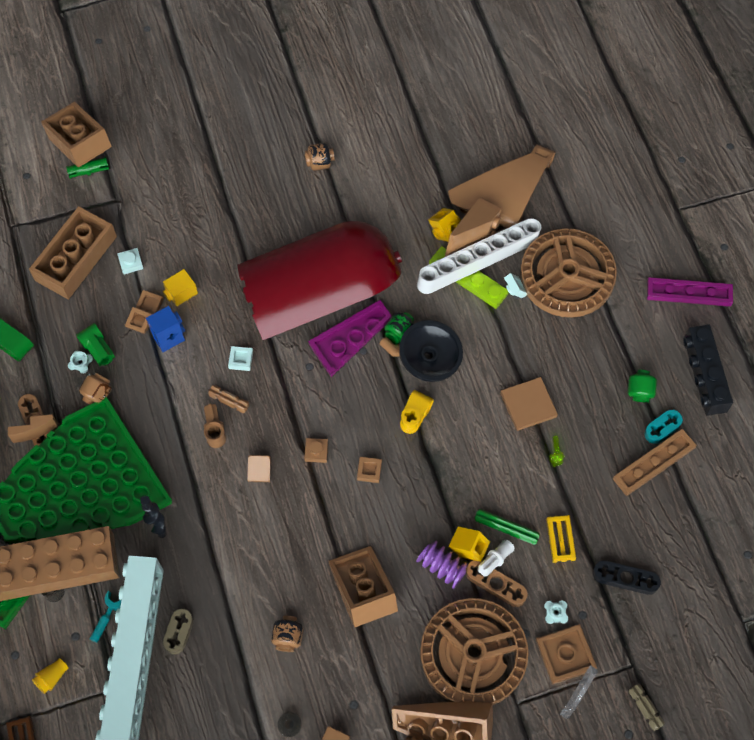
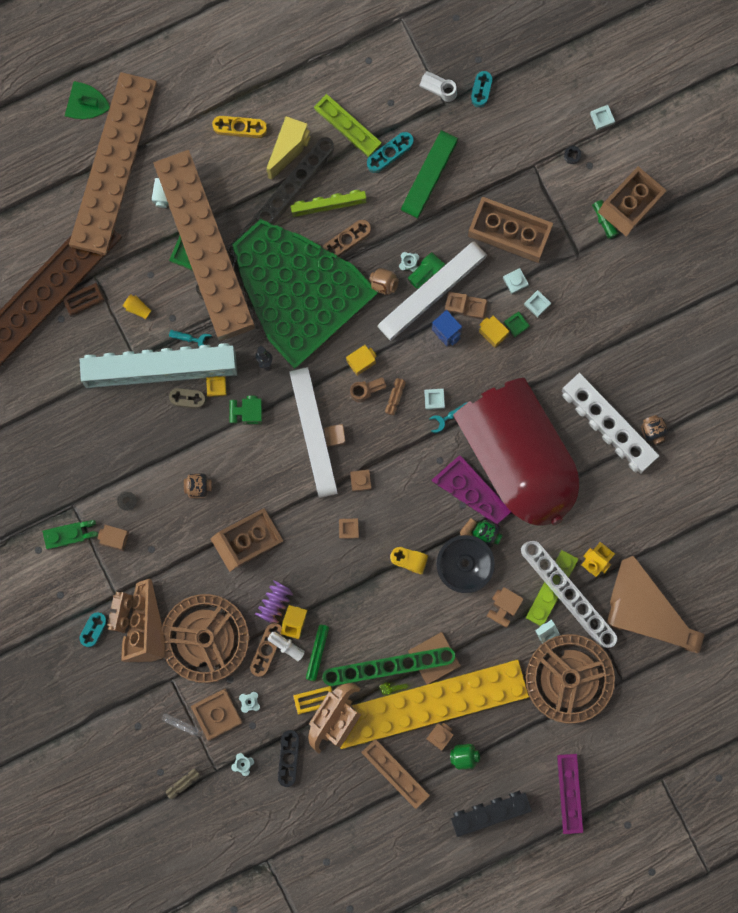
camera: 85 degrees right, 15 degrees up
(15, 191) = (574, 149): none -> black bush
(38, 426) = (337, 242): medium nougat slope -> none
(120, 343) = (432, 290): none -> white beam
(160, 242) = (537, 303): none -> light aqua plate
(171, 595) = (216, 386): none -> yellow tile
(176, 265) = (516, 324): none -> green tile
(179, 425) = (361, 359): none -> yellow brick
(210, 558) = (250, 411): none -> green brick
(250, 491) = (313, 432): none -> white beam
(266, 356) = (441, 421): none -> teal piece
(308, 185) = (595, 399): none -> white brick
(475, 226) = (594, 587): medium nougat slope -> none
(480, 318) = (507, 603): none -> medium nougat brick
(532, 458) = (379, 666): none -> green beam
(580, 420) = (437, 702): none -> yellow plate
(587, 514) = (334, 717): none -> medium nougat plate
(618, 407) = (440, 736): none -> medium nougat brick
(630, 625) = (241, 759): none -> light aqua plate
(660, 422) = (428, 783): teal beam -> none

